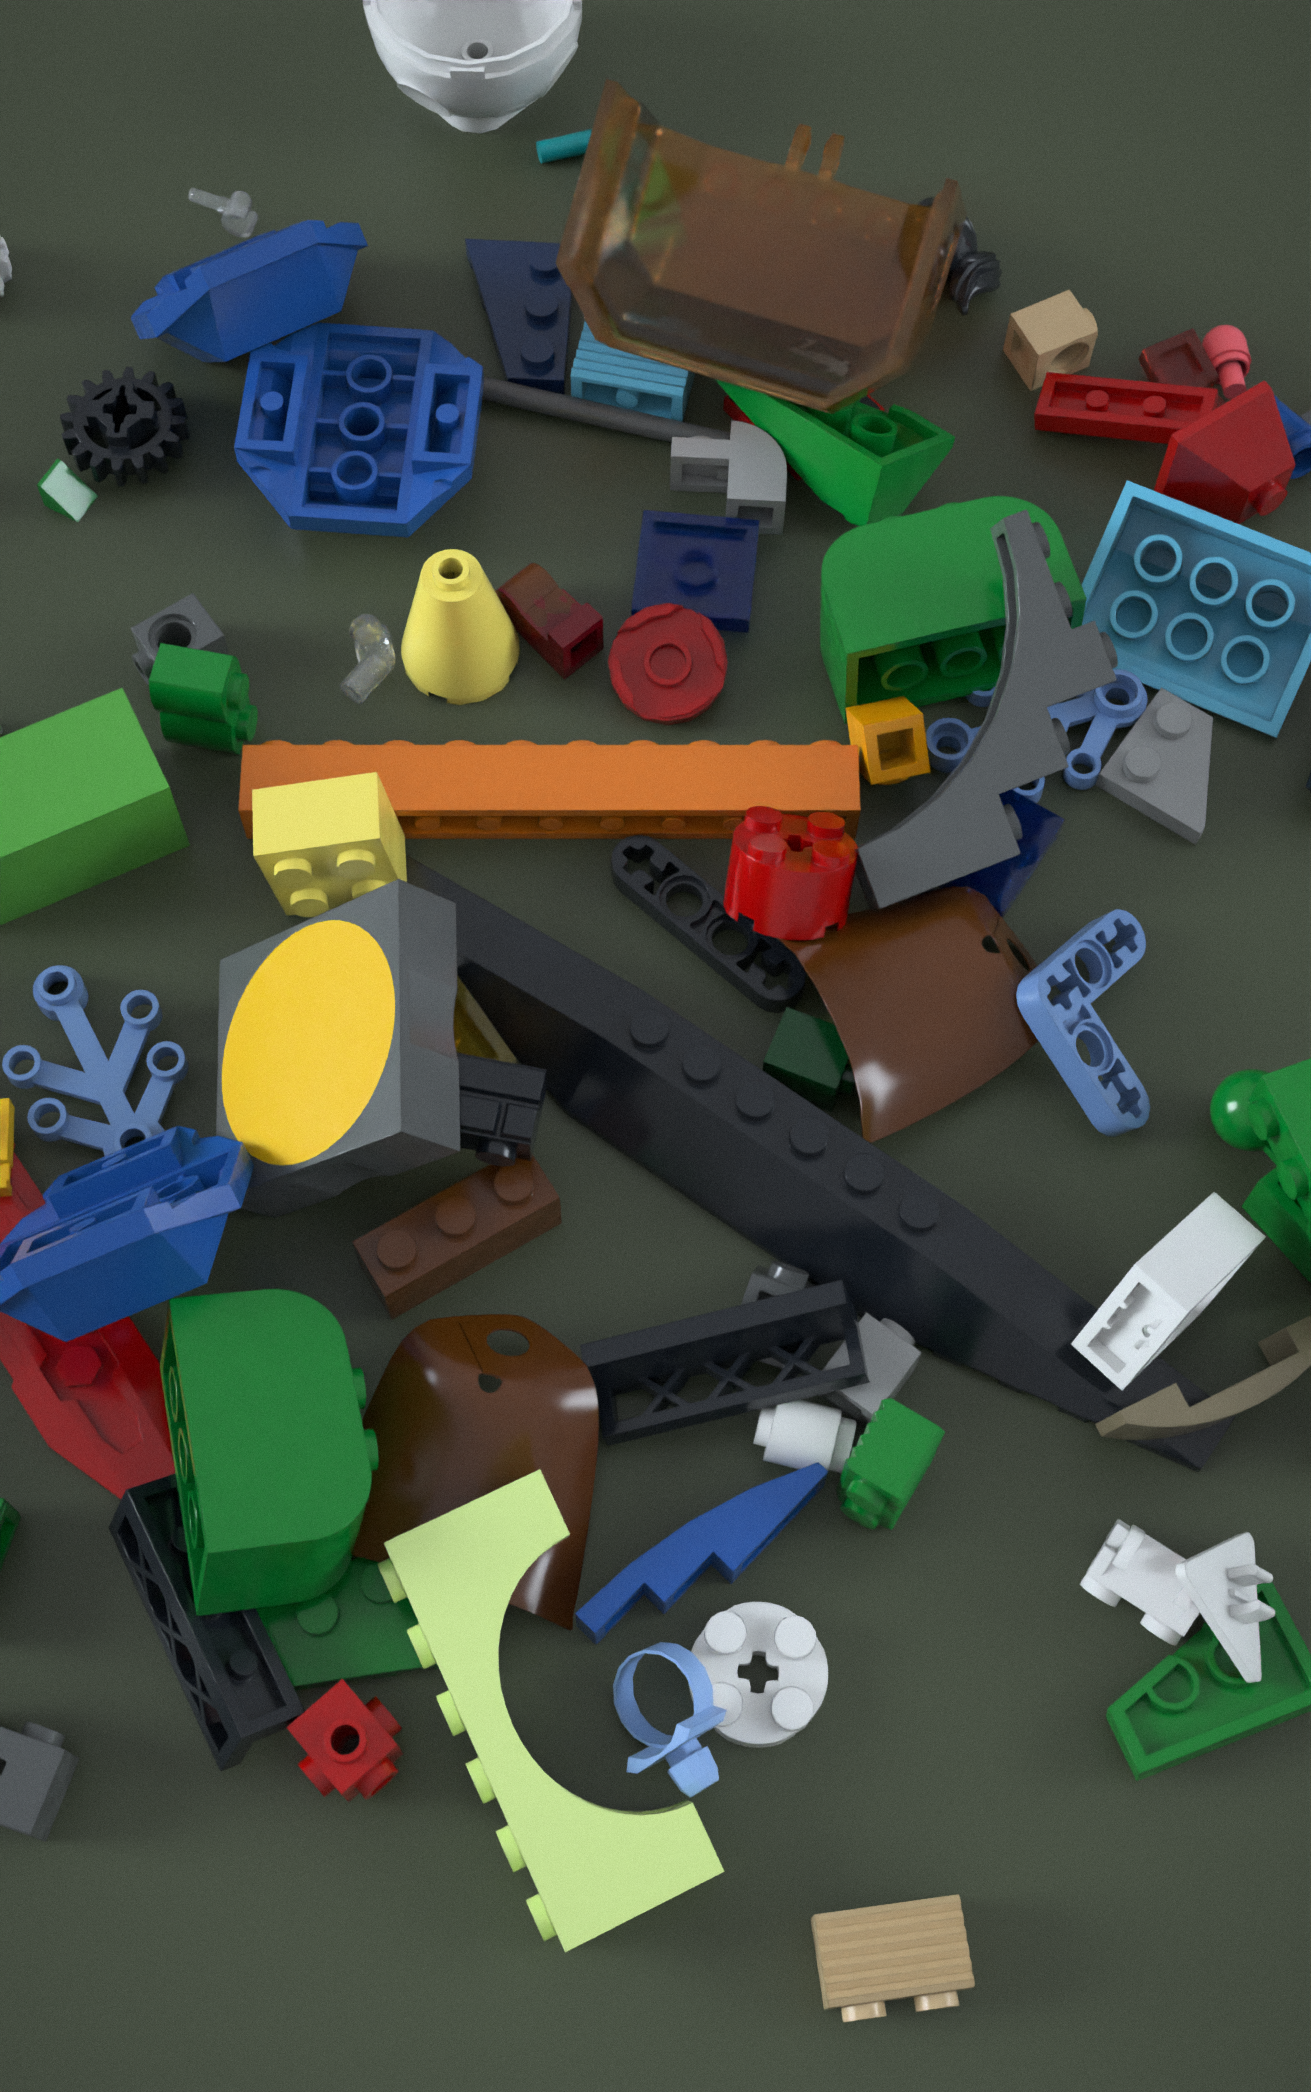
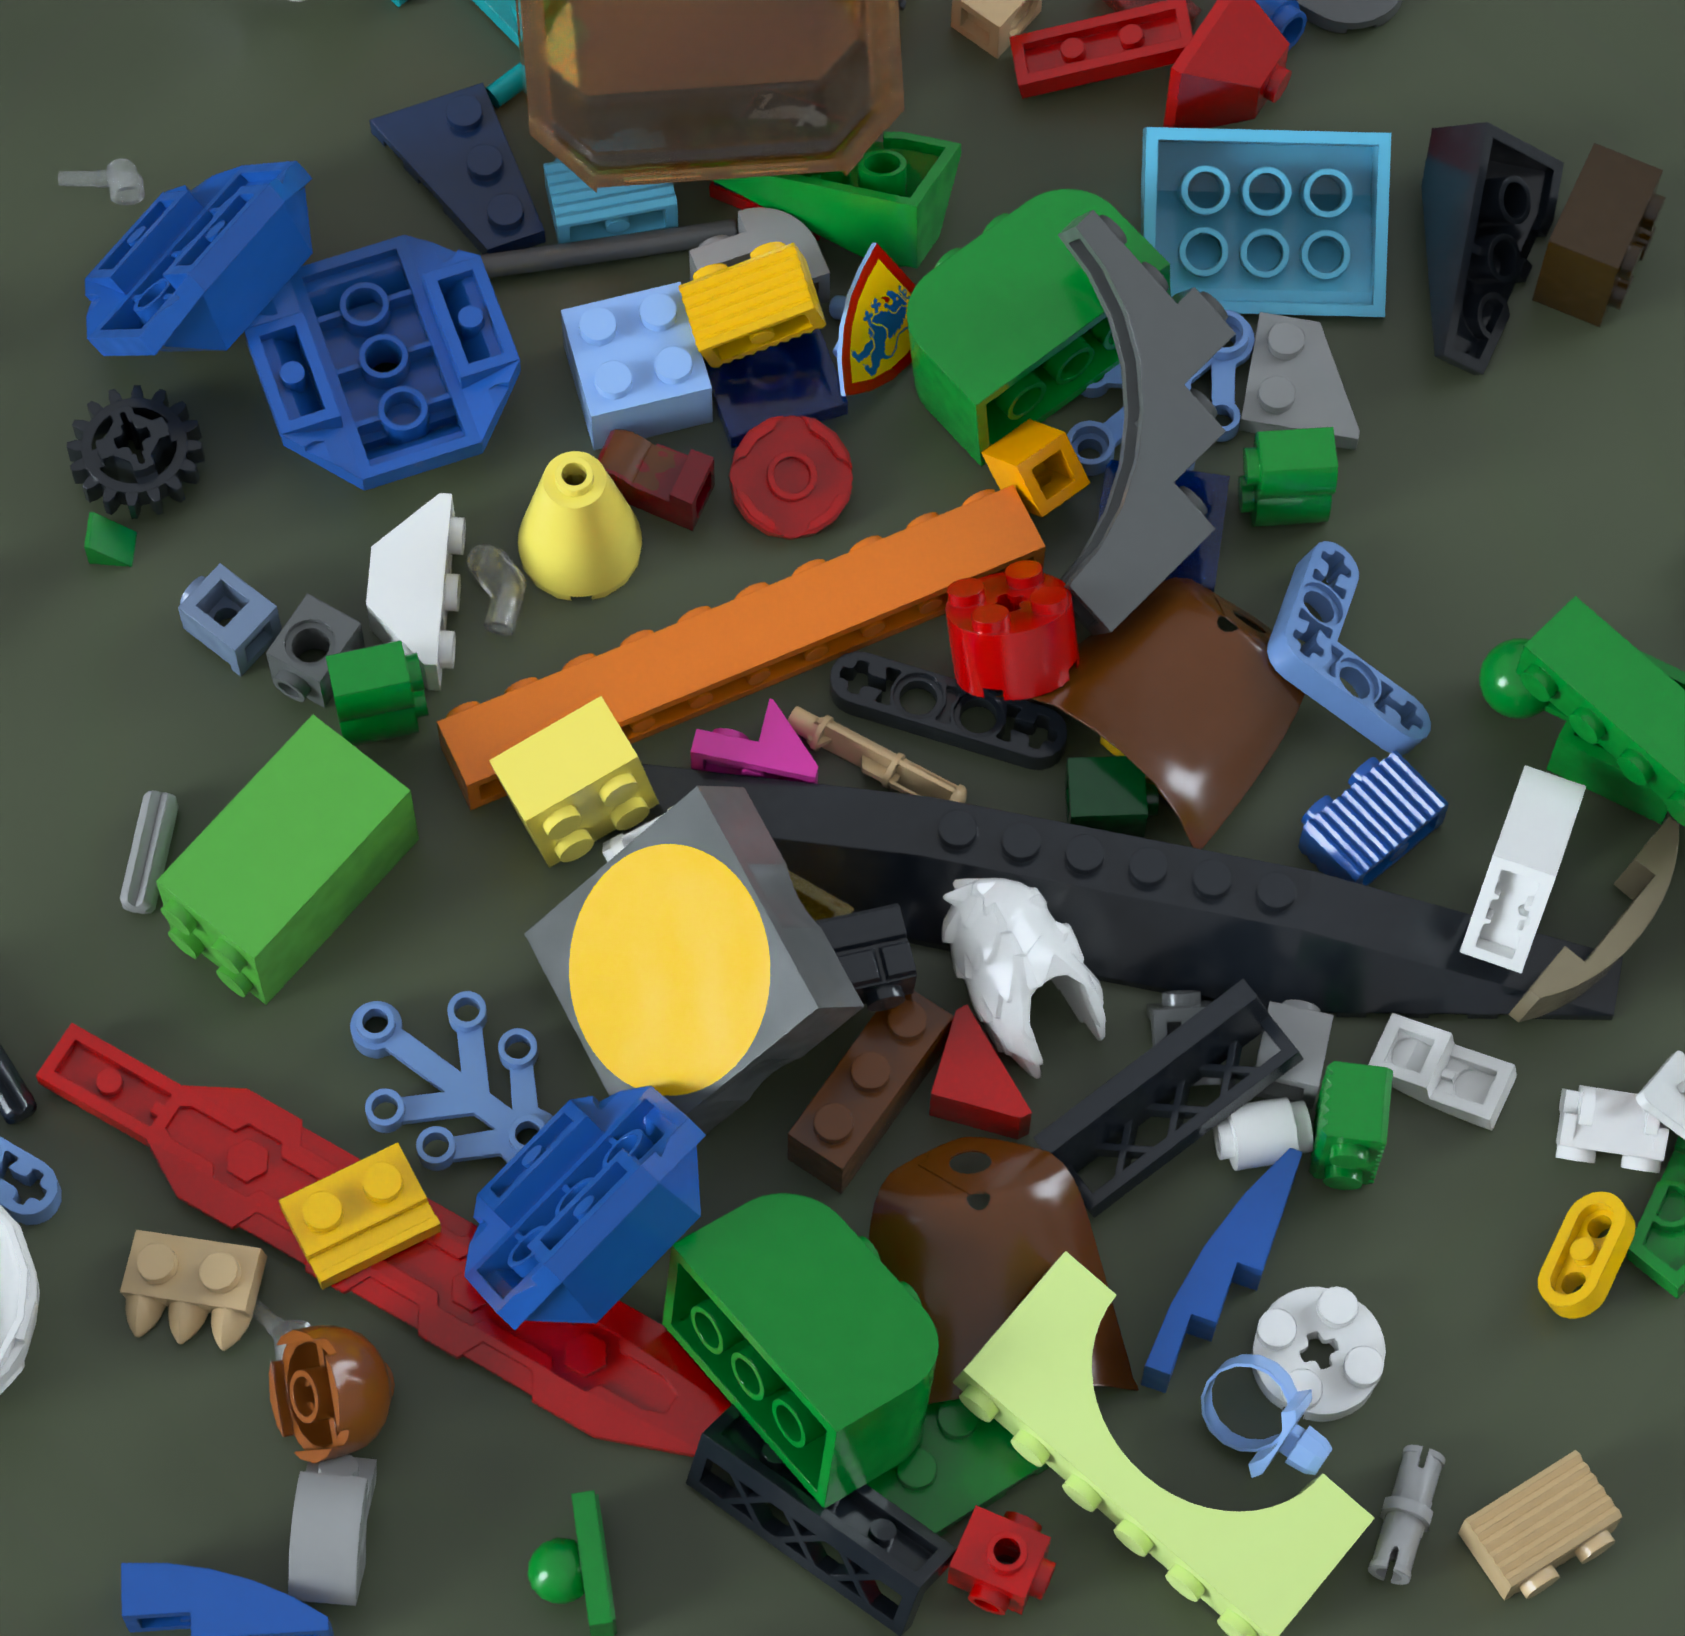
camera: 25 degrees left, 0 degrees up
(122, 588) = (225, 596): none -> sand blue brick
(296, 626) = (414, 586): none -> white slope
(523, 896) = (775, 756): none -> dark pink slope
(553, 1268) = (975, 1085): none -> red slope
(581, 516) = (637, 364): none -> light blue brick
(619, 940) = (872, 758): none -> tan piece
(643, 1154) = (1006, 950): none -> white head
(699, 498) = (751, 303): none -> yellow brick
(765, 1878) = (1406, 1514): none -> light grey pin
(790, 570) = (873, 324): none -> shield
(1006, 1452) = (1442, 1073): none -> white slope
(1048, 1185) = (1372, 821): none -> blue brick
(1060, 1696) = (1585, 1259): none -> yellow plate
(1115, 837) = (1289, 476): none -> green brick

